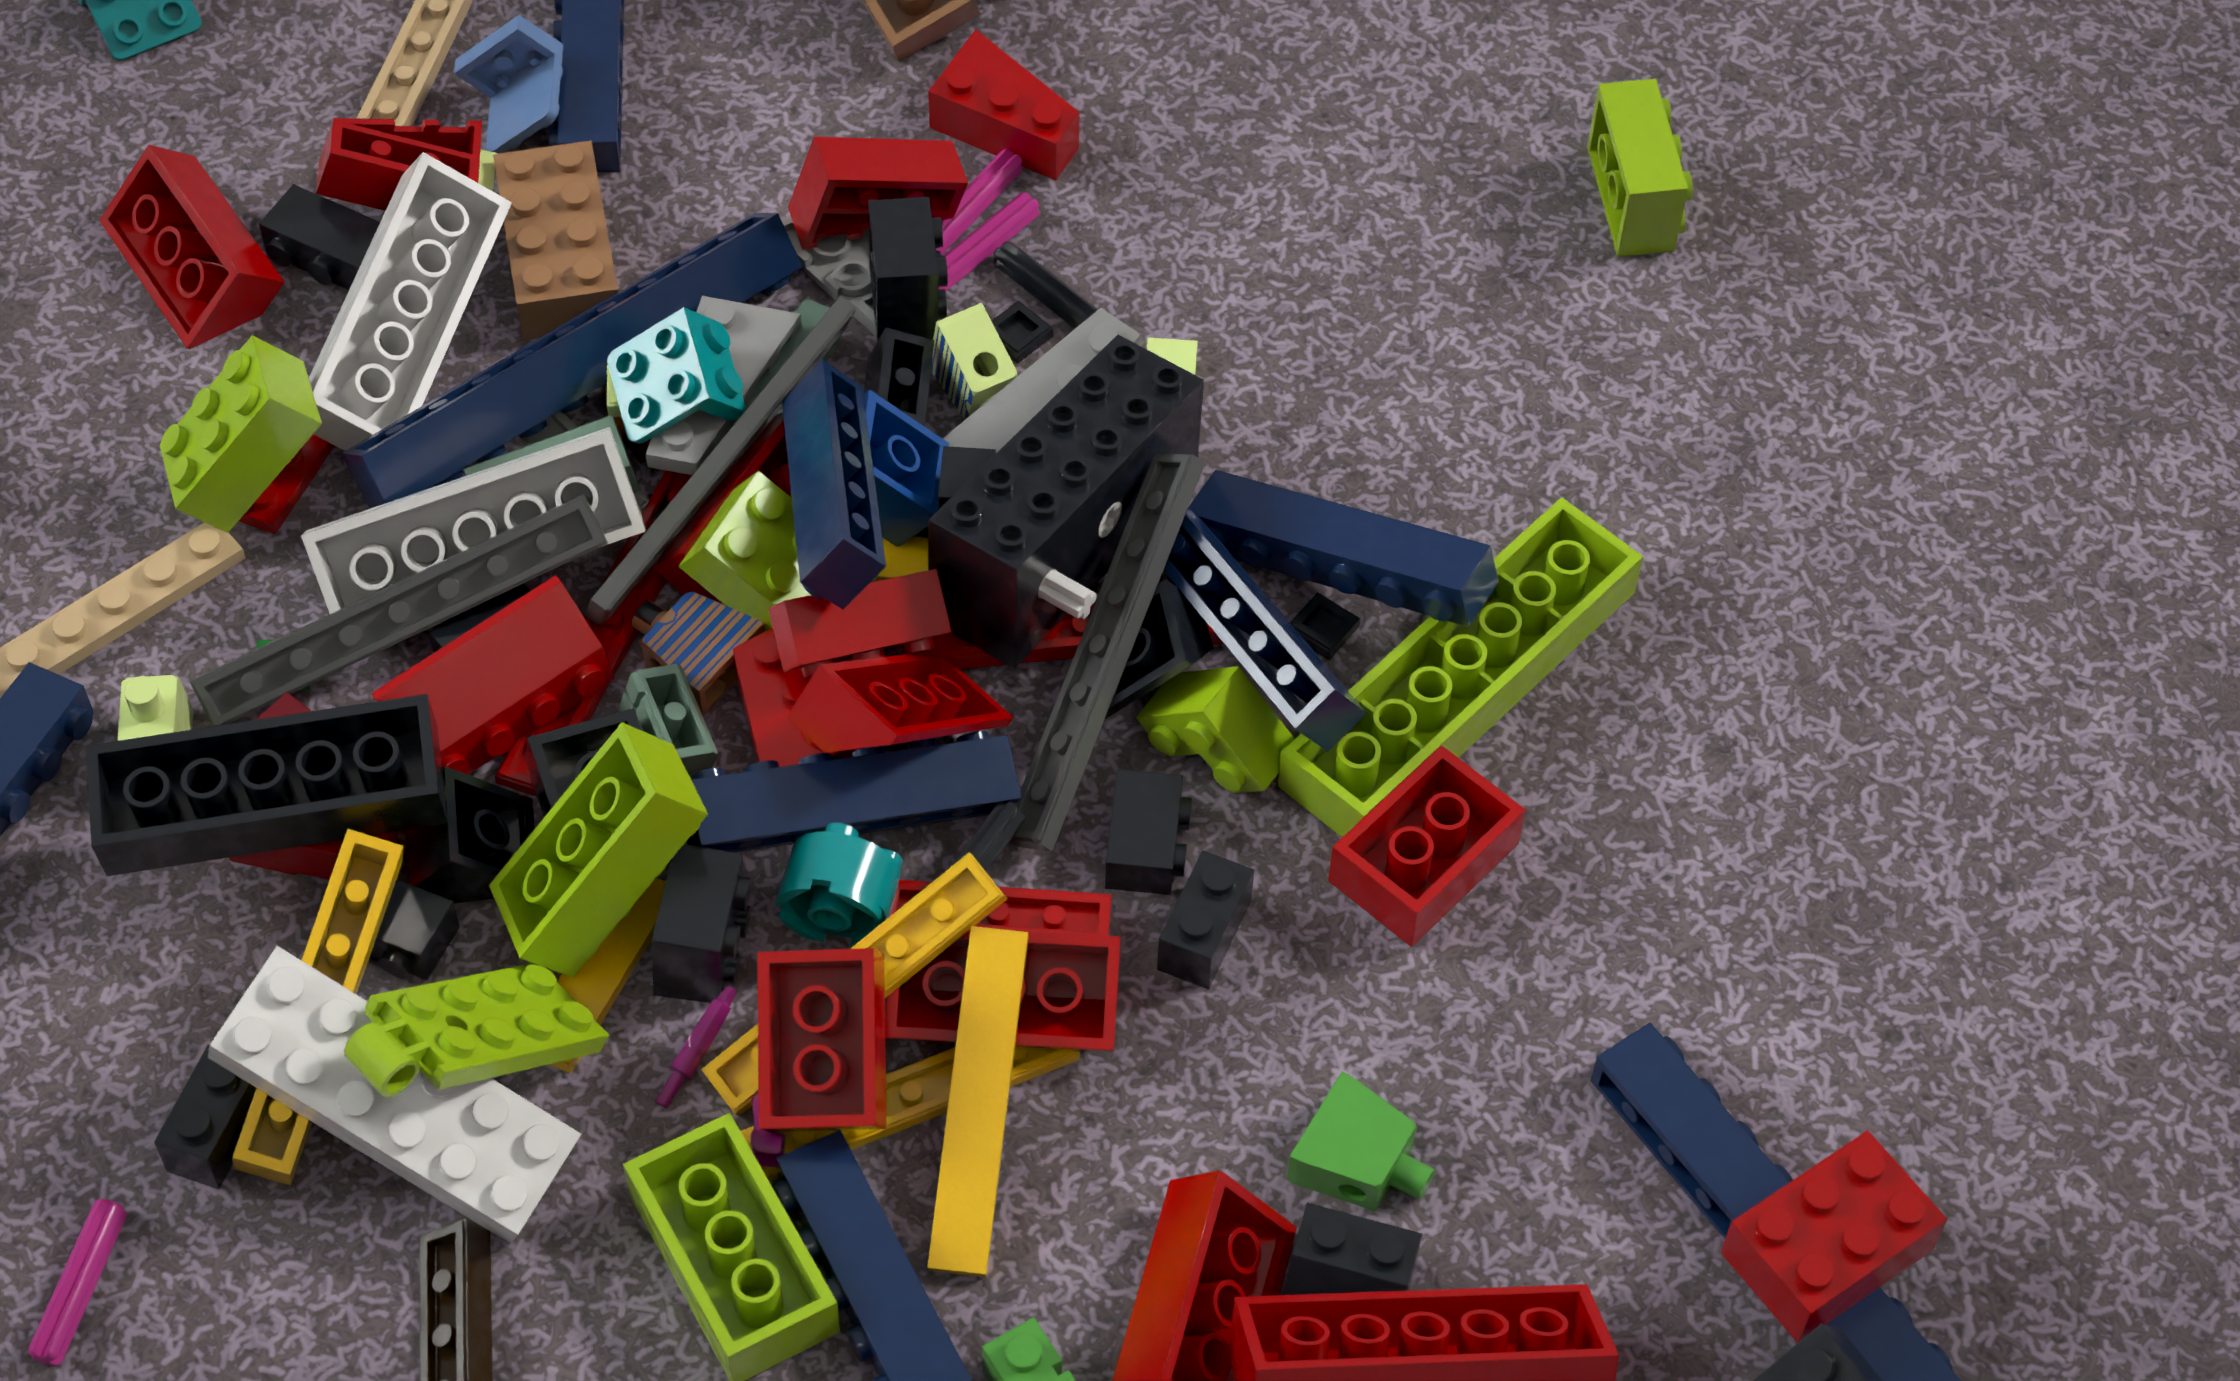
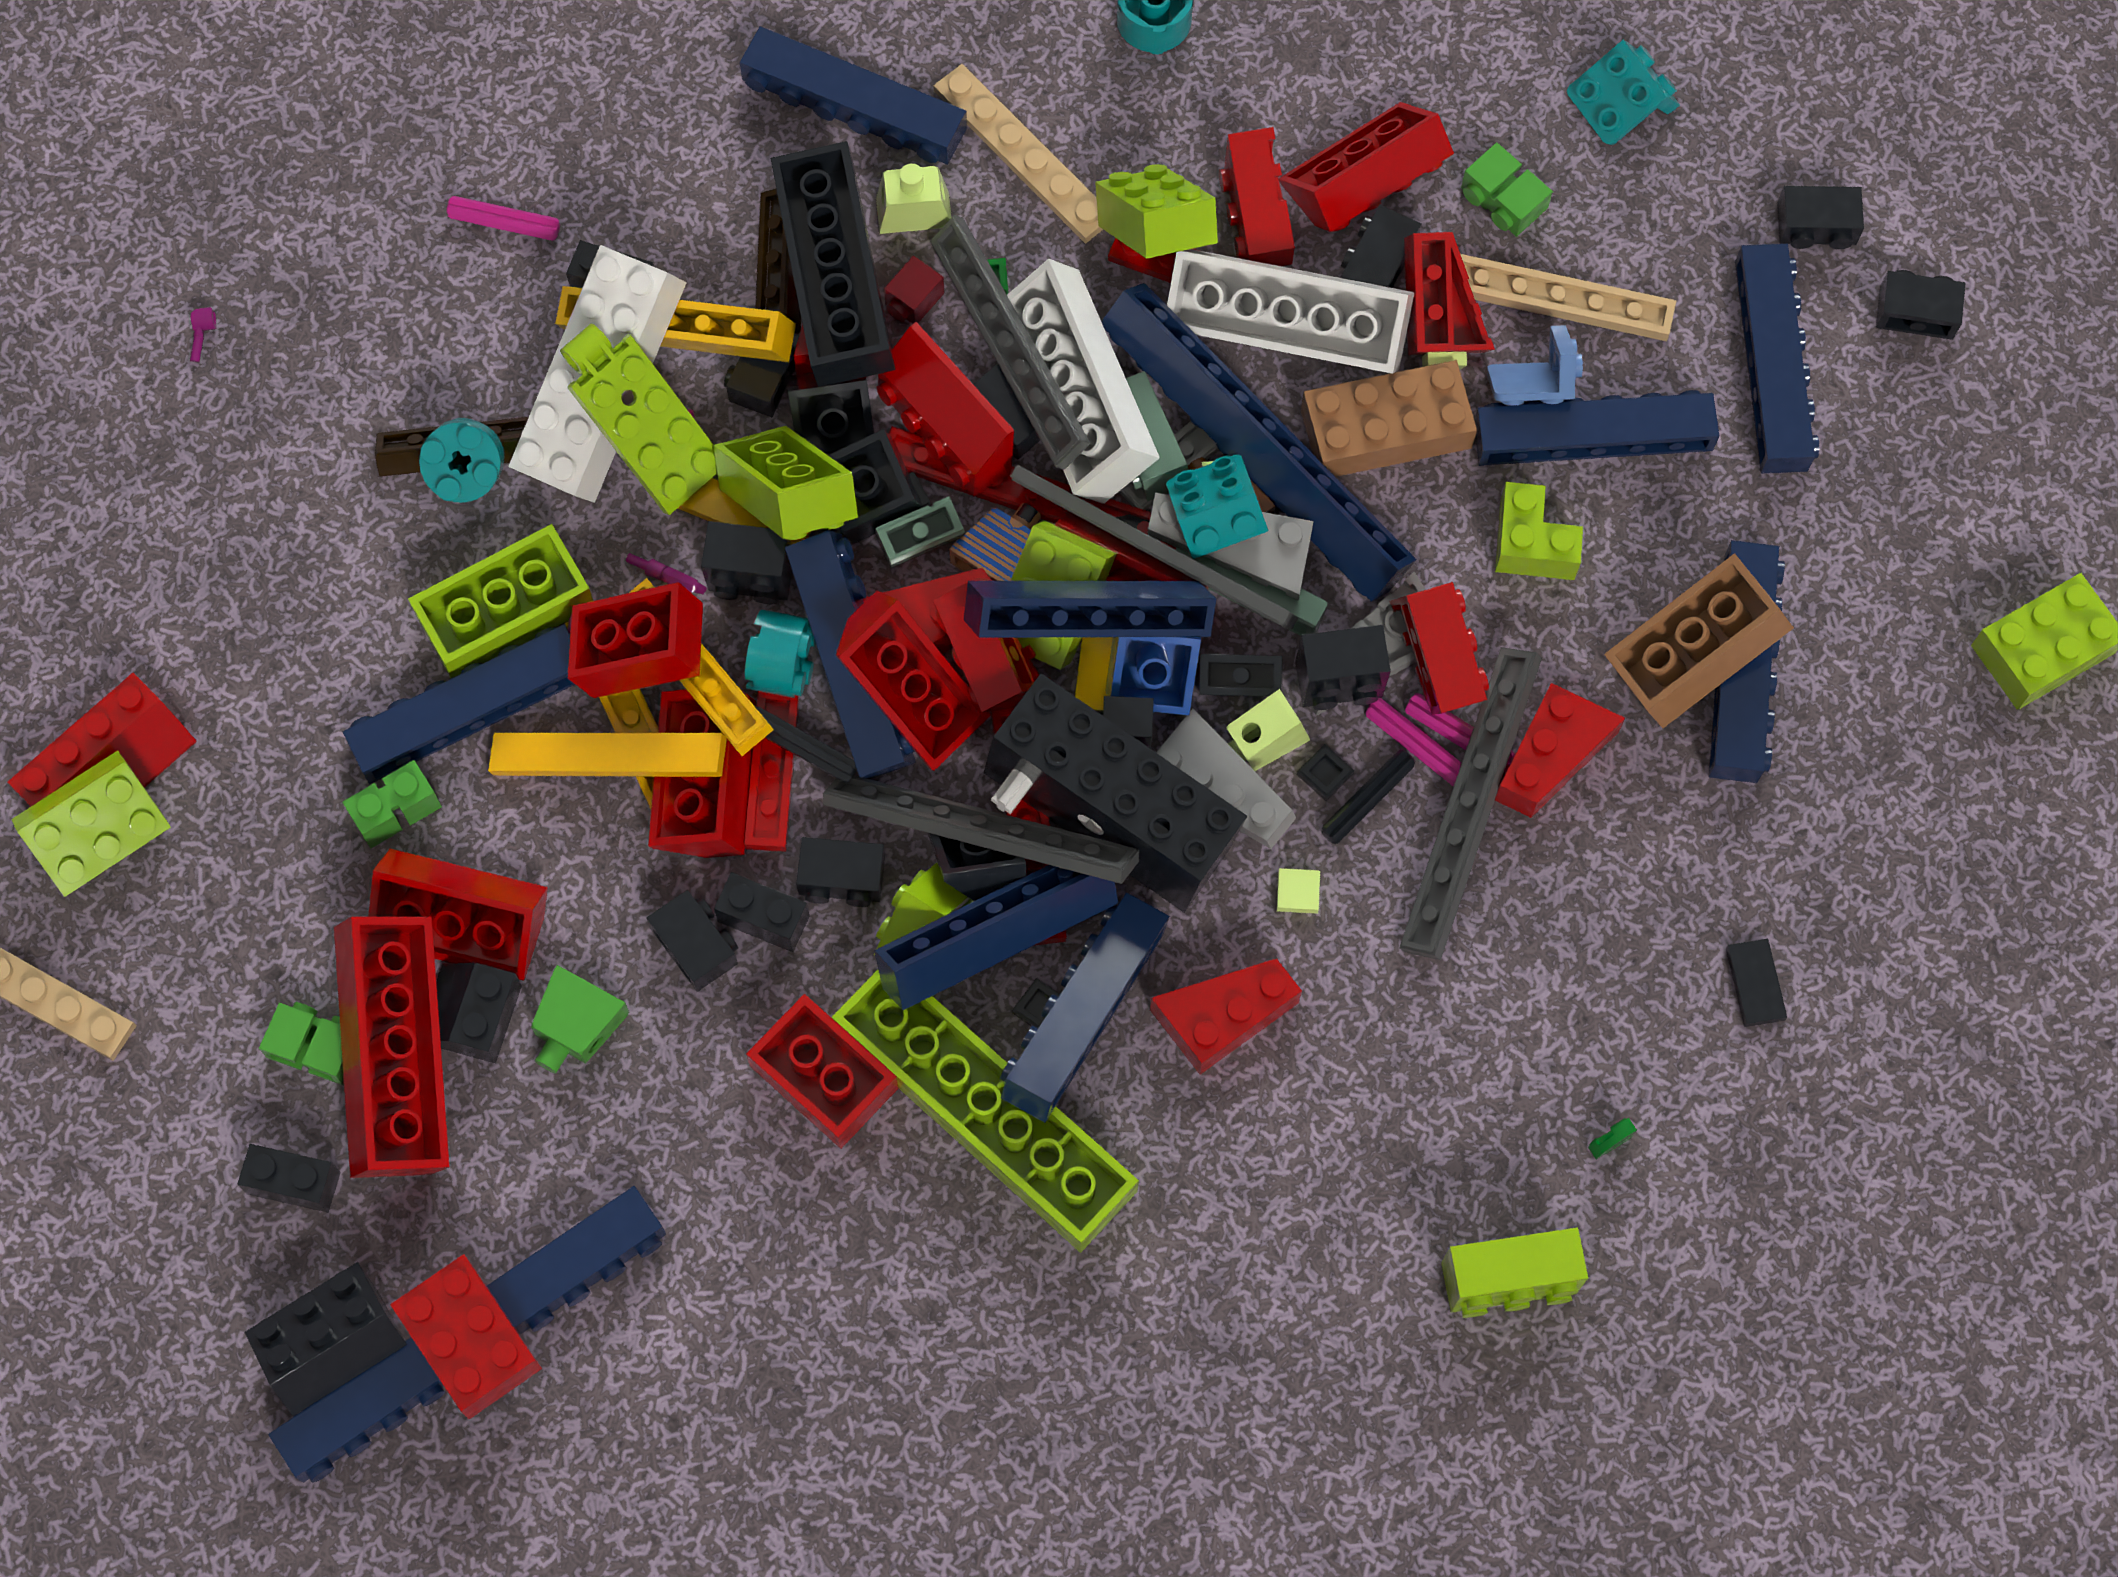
camera: 90 degrees right, 15 degrees up
(193, 343) = (1256, 199): none -> red wedge
(206, 911) = (780, 283): none -> dark brown slope
(243, 129) = (1511, 200): none -> bright green piece
(499, 1300) = (453, 481): none -> teal brick
(729, 119) = (1528, 543): none -> lime brick
(1078, 184) = (1470, 803): none -> dark grey tile
(1243, 1004) = (693, 940): none -> black brick
(1334, 425) = (1225, 1011): none -> red wedge
(1468, 90) = (1619, 1134): none -> green tile

